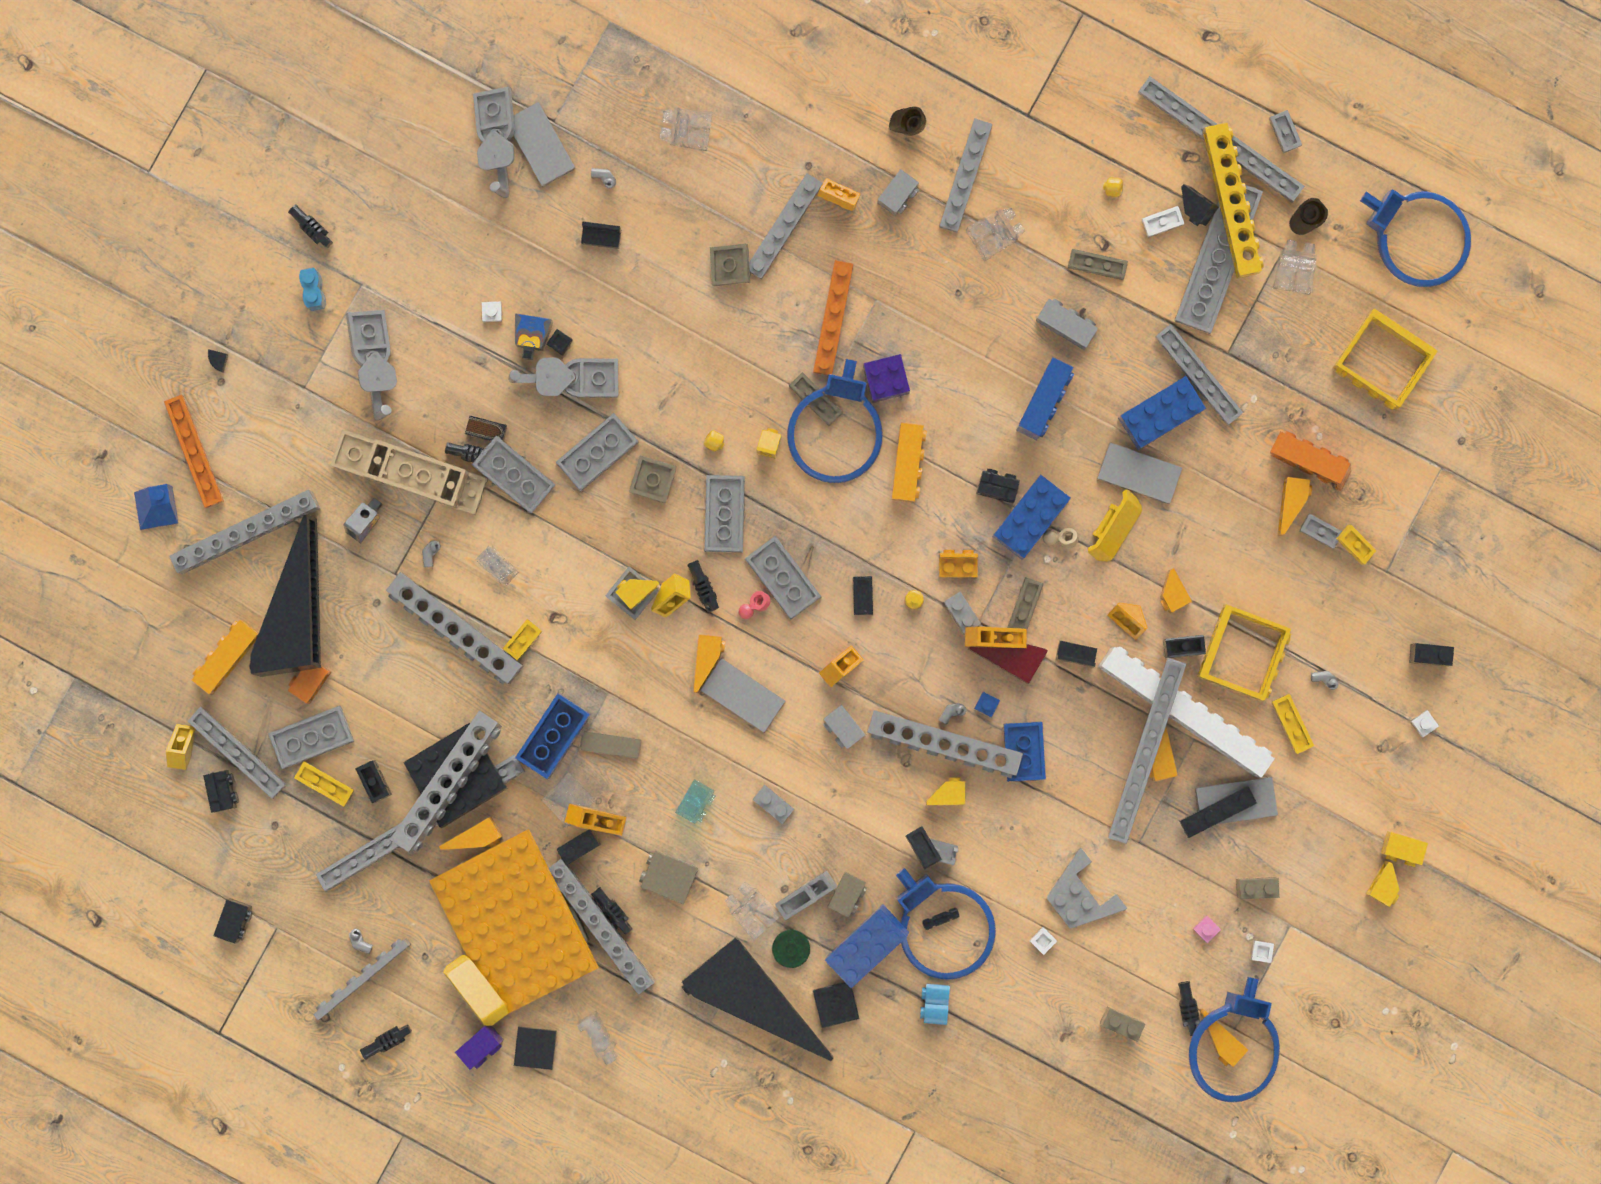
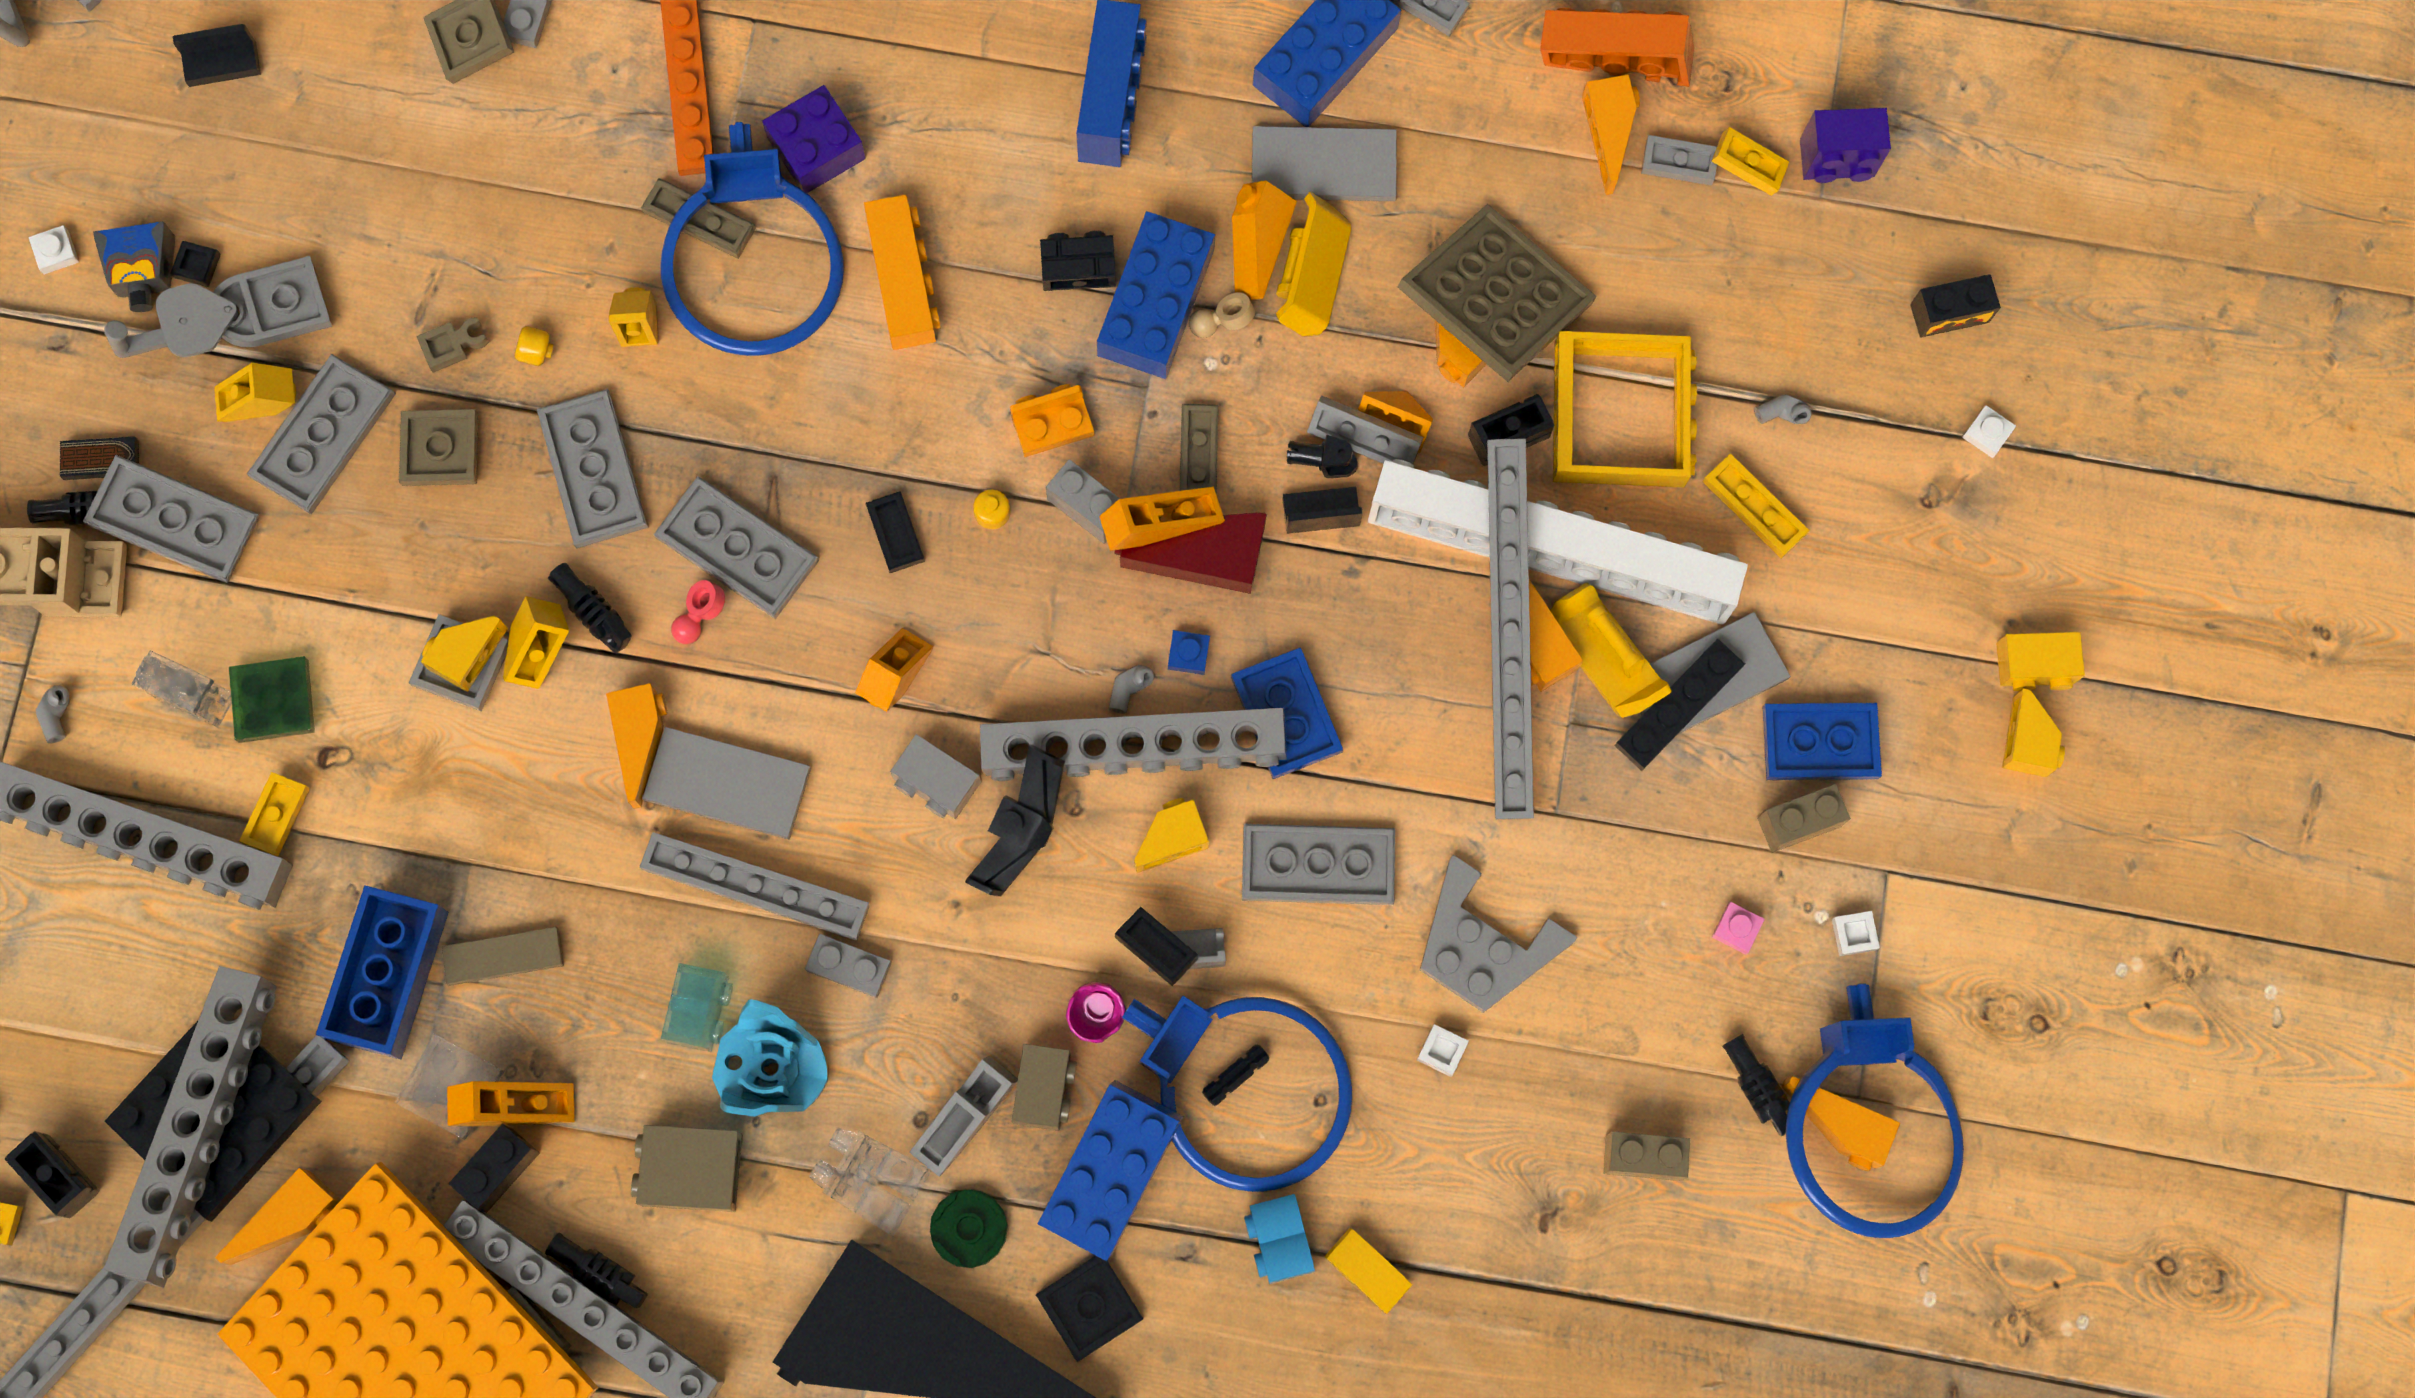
camera: 25 degrees left, 10 degrees down
(536, 581) = (271, 699): none -> clear green plate
(570, 422) = (254, 393): none -> yellow slope
(670, 427) = (445, 345): none -> dark tan plate
(709, 852) = (764, 1038): none -> medium azure piece
(740, 751) = (754, 886): none -> light grey plate
(877, 765) = (1021, 824): none -> black plate
(883, 867) = (1095, 1012): none -> dark pink hair
(972, 1032) = (1368, 1270): none -> yellow slope
(1014, 830) = (1318, 864): none -> light grey tile
(1089, 629) = (1329, 456): none -> black piece
(1093, 502) = (1258, 234): none -> light orange slope
(1111, 623) = (1364, 432): none -> light grey plate
(1192, 774) = (1608, 653): none -> yellow piece
(1202, 573) = (1497, 292): none -> dark tan plate
(1281, 852) = (1822, 741): none -> blue plate
(1406, 553) = (1845, 144): none -> dark purple brick

